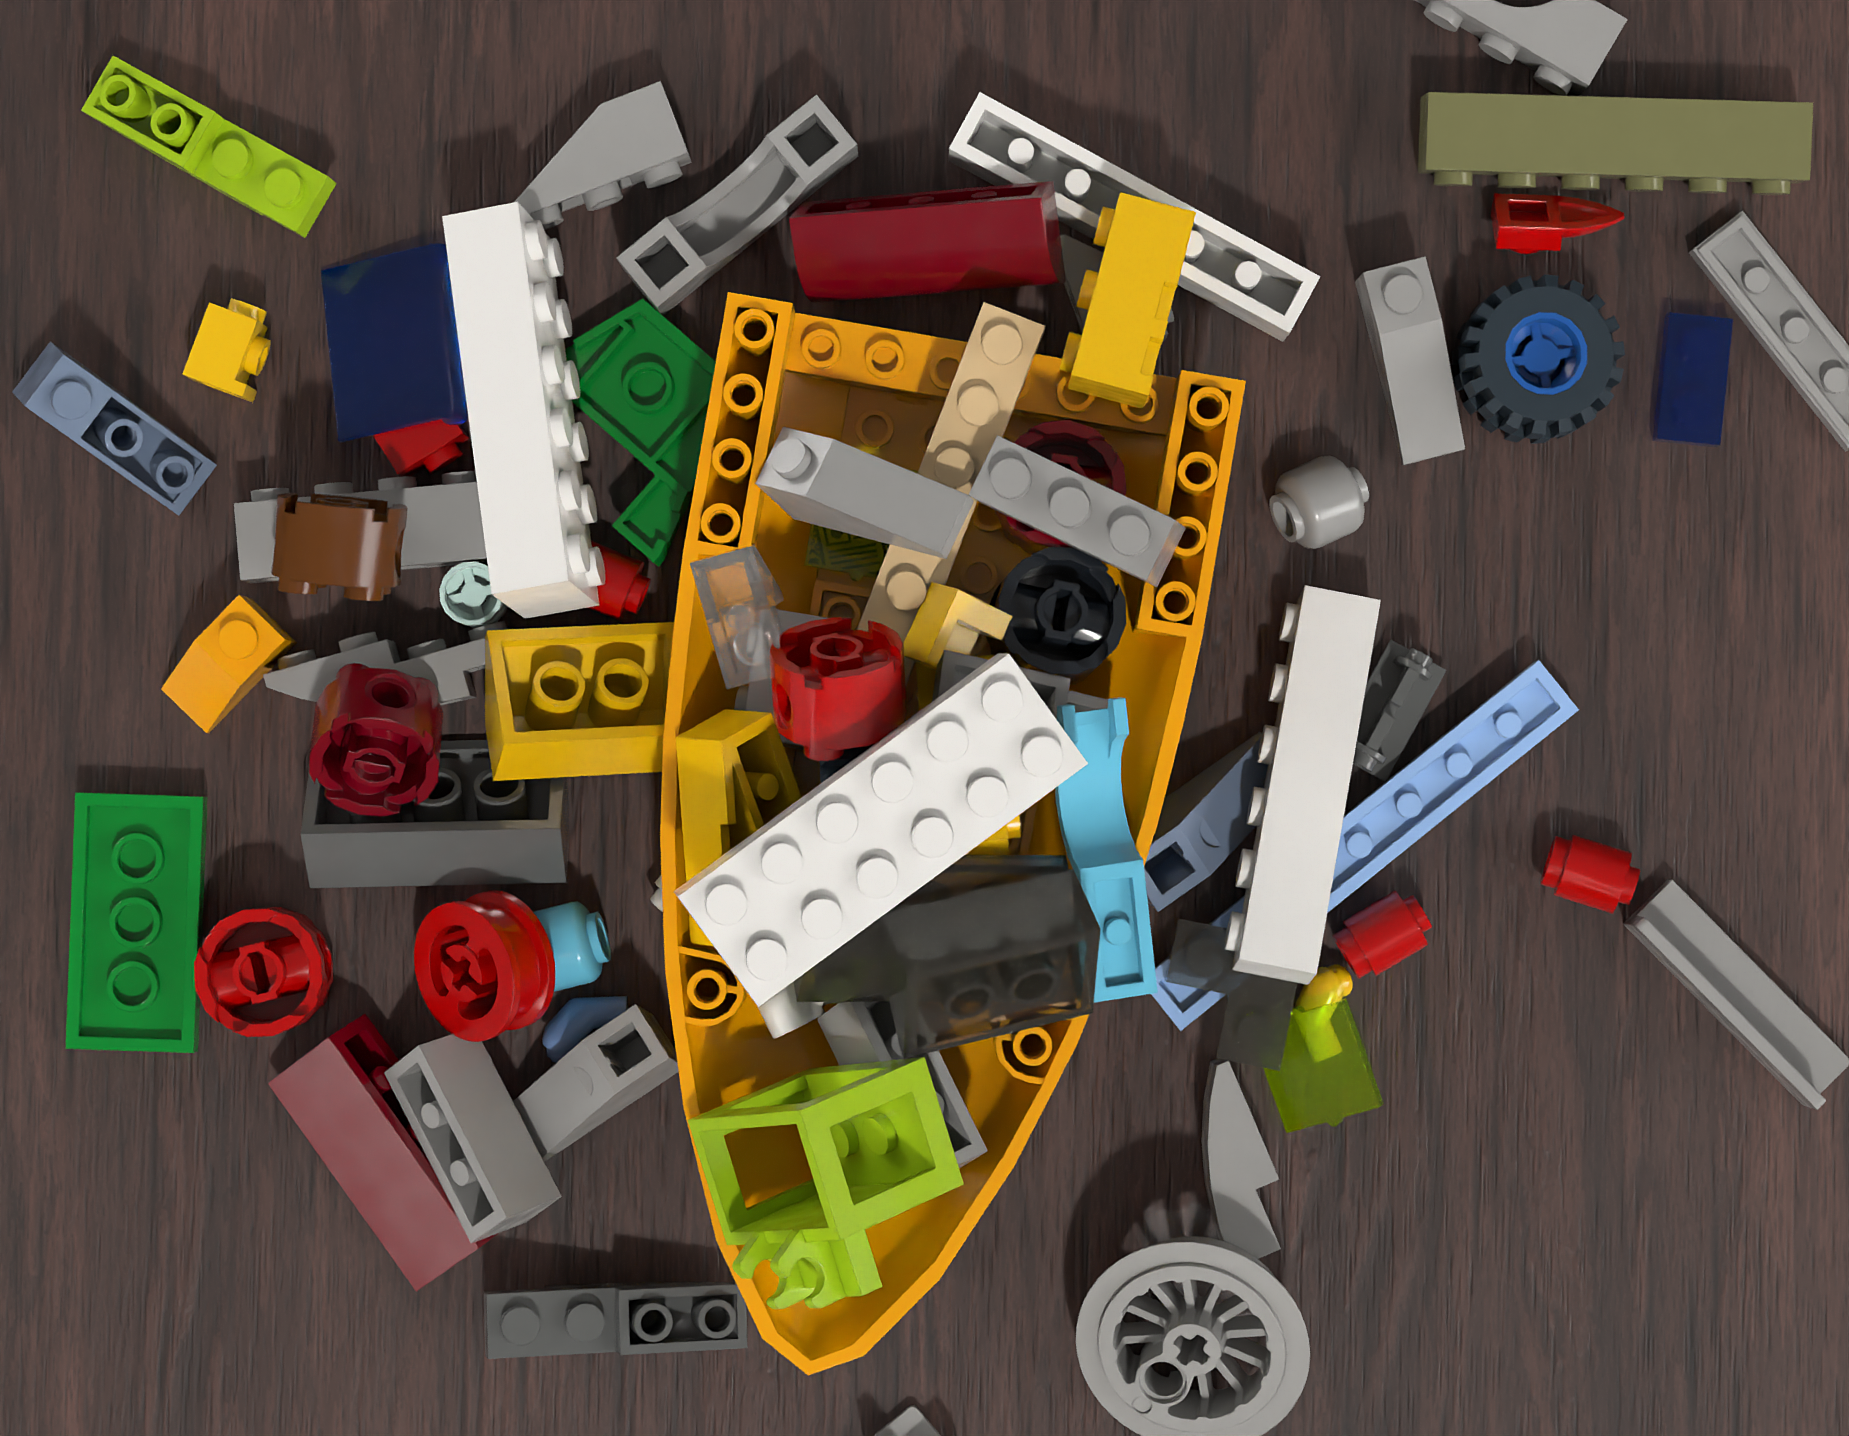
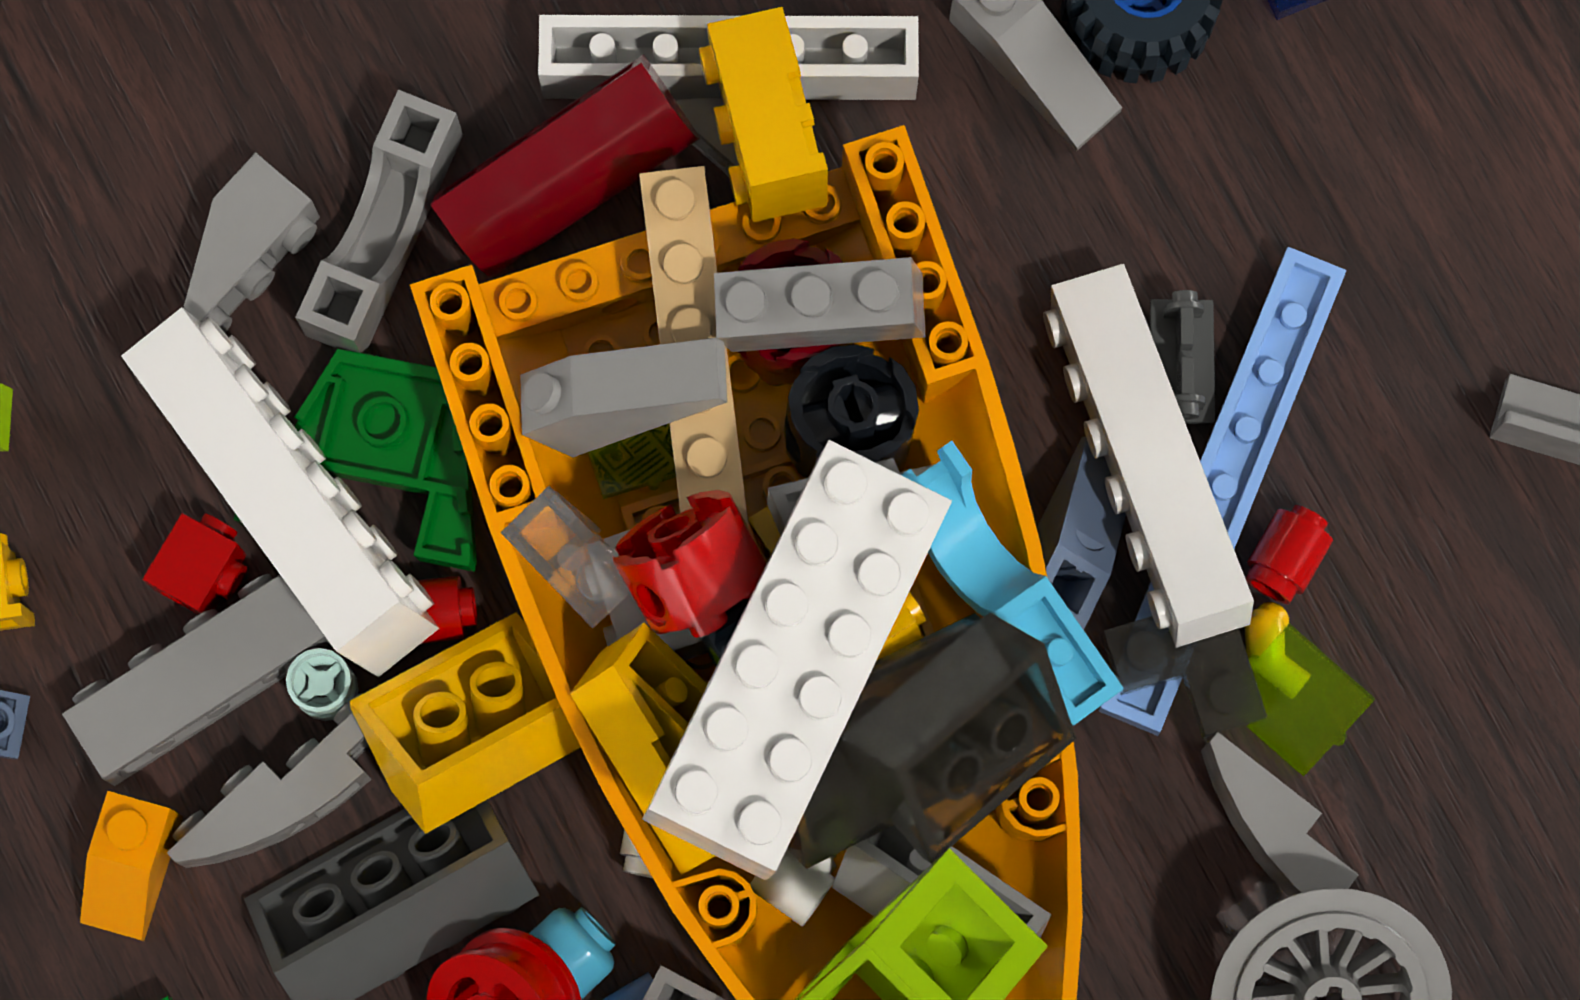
camera: 30 degrees left, 10 degrees down
(338, 544) = (174, 689): reddish brown brick -> none
(376, 740) = (300, 851): dark red brick -> none
(393, 343) = (135, 500): clear blue piece -> none
(951, 623) = (762, 458): yellow panel -> none
(1319, 502) = (1023, 214): light grey head -> none
(1590, 873) = (1436, 405): red brick -> none

